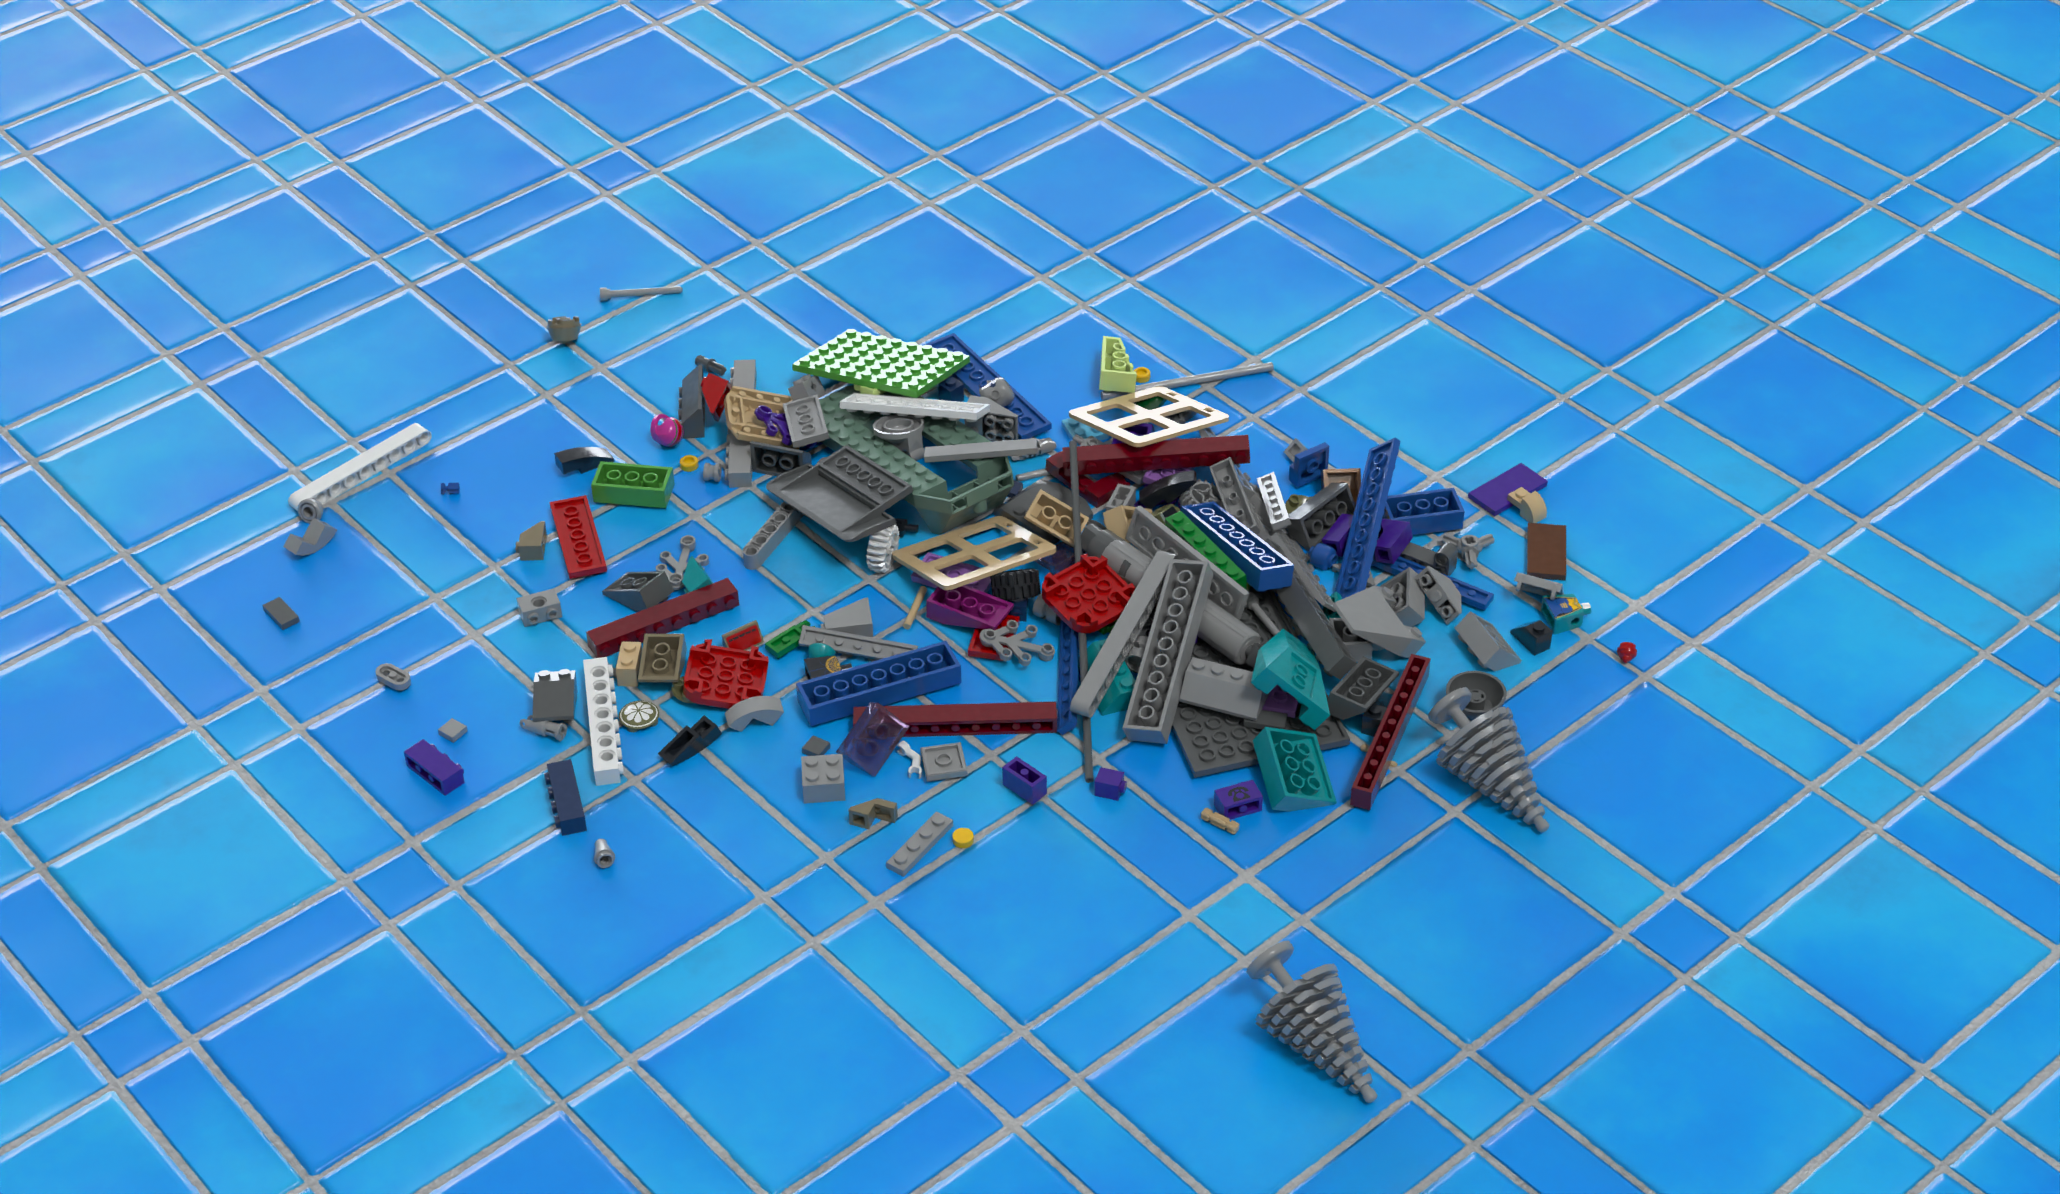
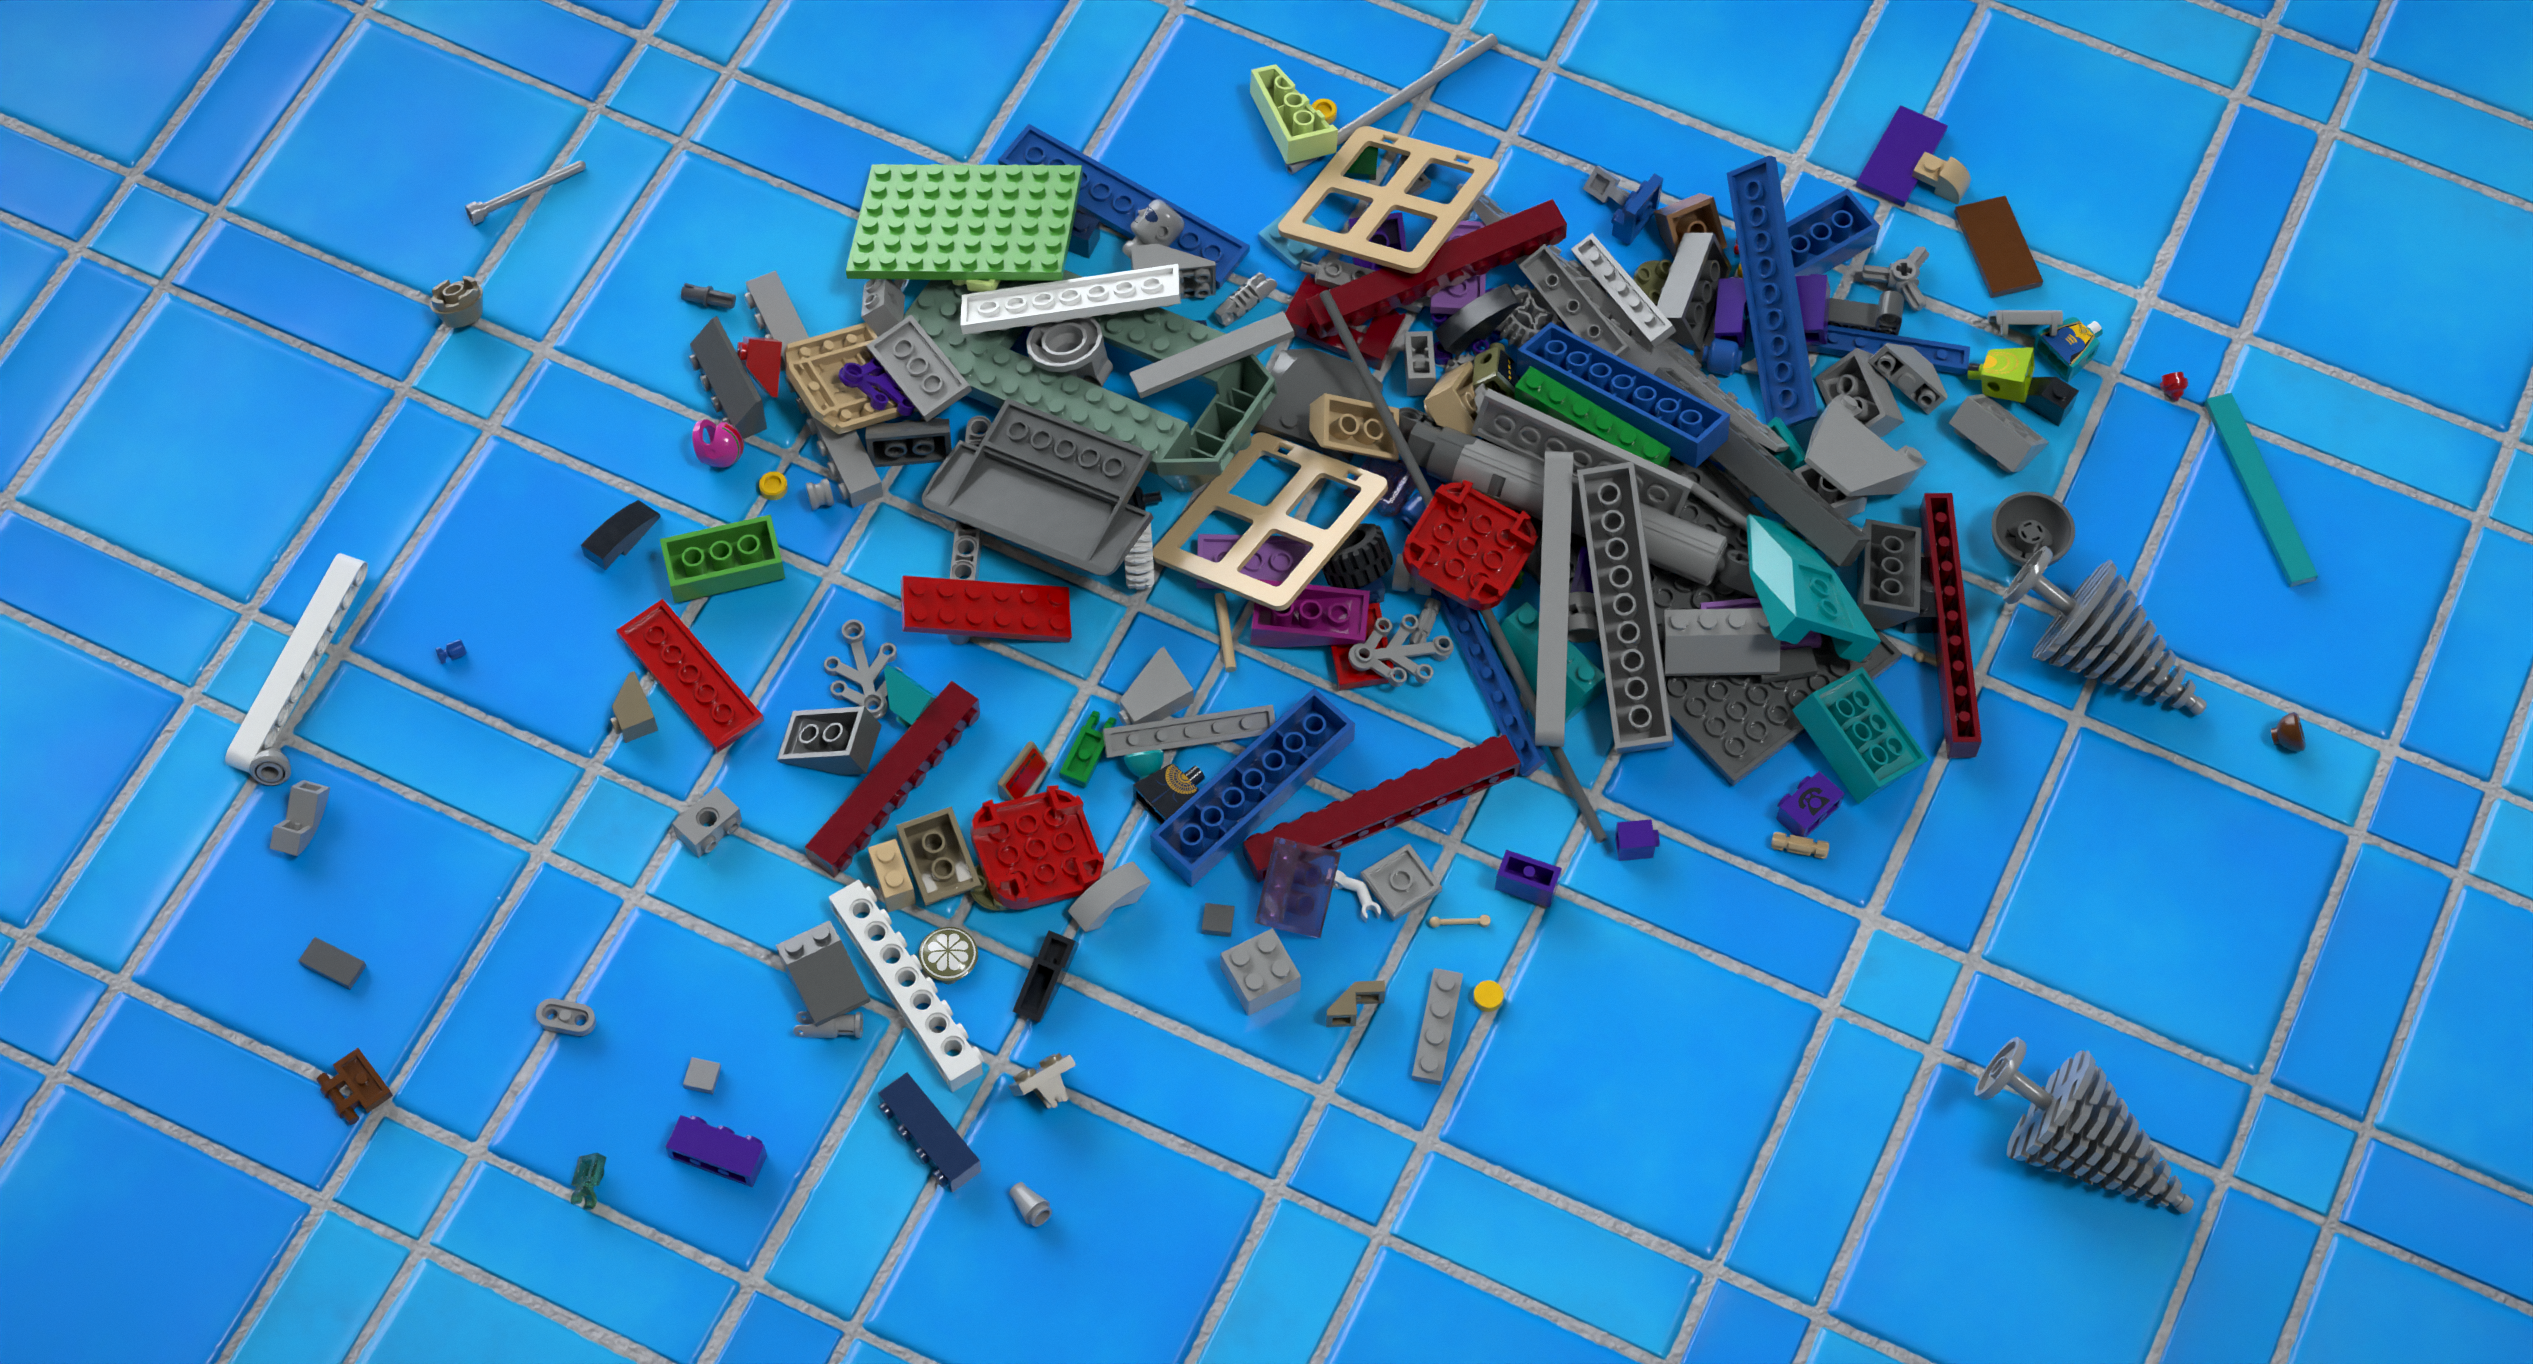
camera: 25 degrees left, 20 degrees up
(256, 670) = (363, 1082): none -> reddish brown plate
(353, 755) = (586, 1176): none -> plate
(651, 788) = (1045, 1081): none -> plate
(771, 549) = (985, 609): none -> red plate
(985, 799) = (1483, 921): none -> tan hinge
(1046, 635) = (1426, 621): none -> light grey axle
(1509, 612) = (2005, 373): none -> lime torso
(1600, 858) = (2289, 733): none -> brick
(1657, 726) = (2261, 490): none -> teal tile

